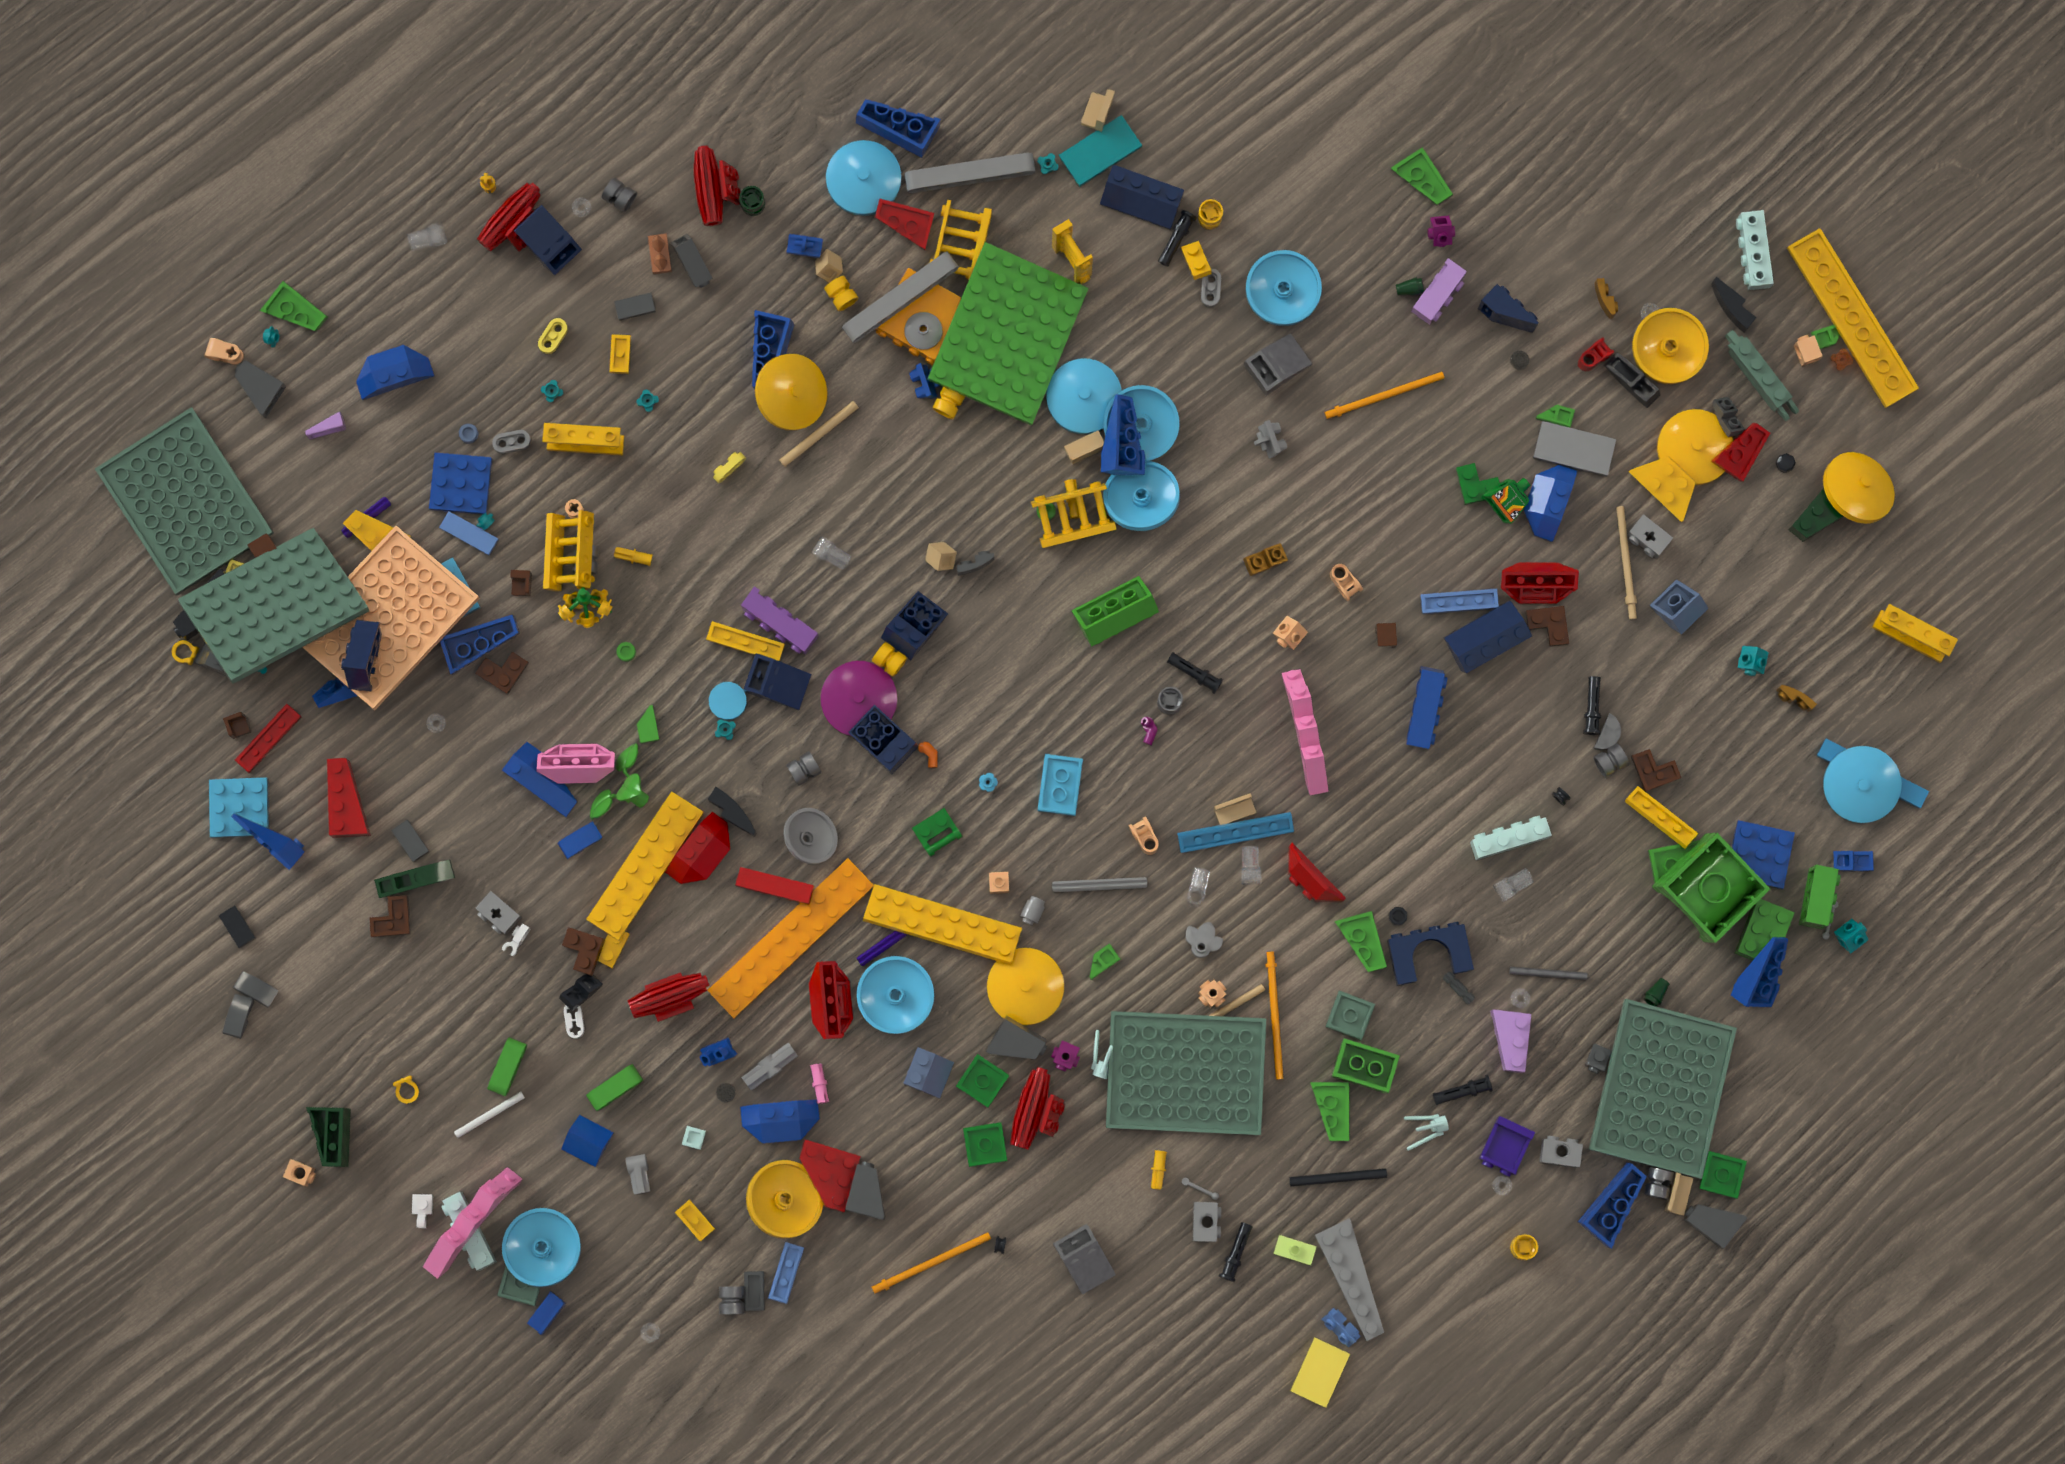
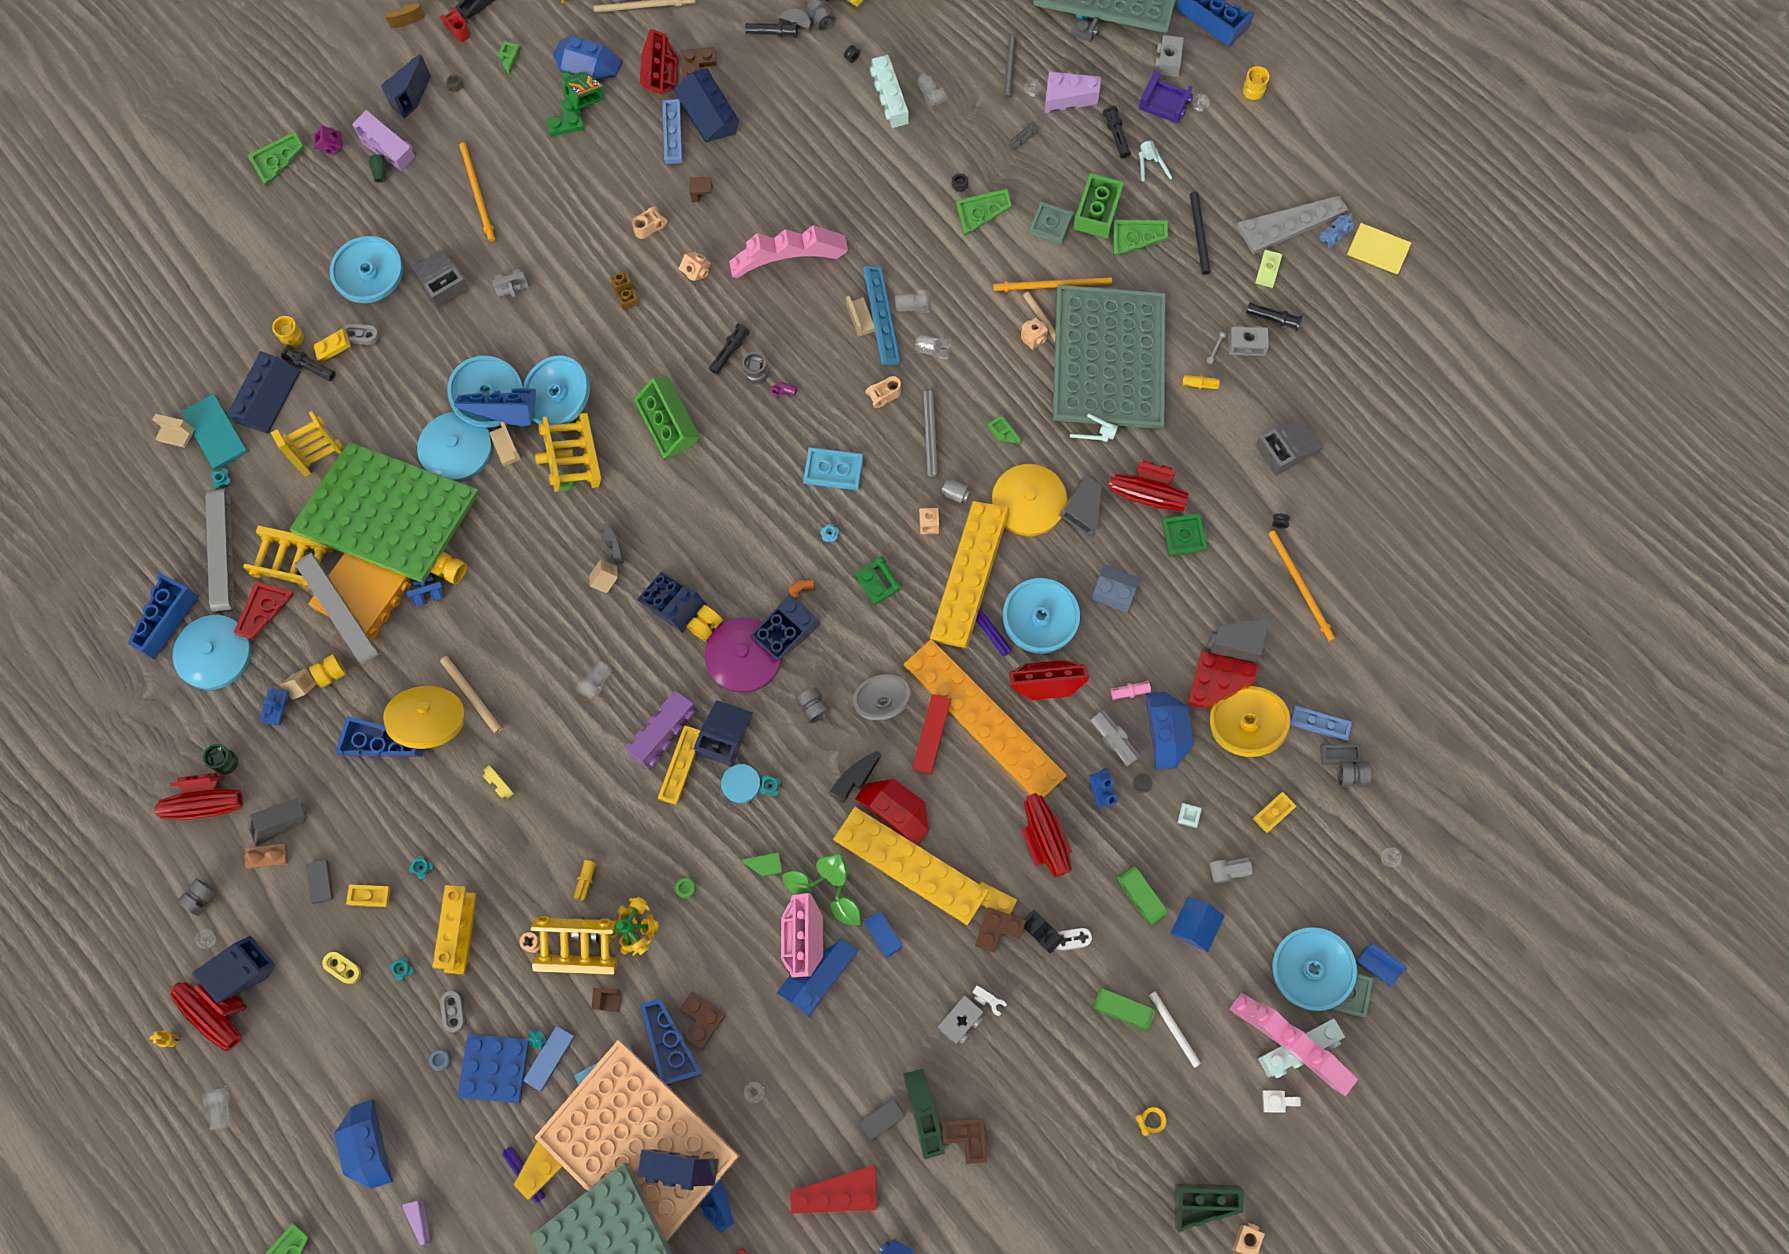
camera: 85 degrees left, 10 degrees down
(926, 339) = (379, 594): light grey dish -> none
(982, 1081) = (1122, 537): green plate -> none
(1071, 1051) = (1097, 460): magenta brick -> none
(1203, 936) = (980, 343): light grey plate -> none
(1310, 879) = (924, 252): red wedge -> none
(1425, 707) = (768, 155): blue wedge -> none
(1451, 937) = (989, 176): dark blue arch -> none
(1574, 448) = (539, 42): light grey tile -> none

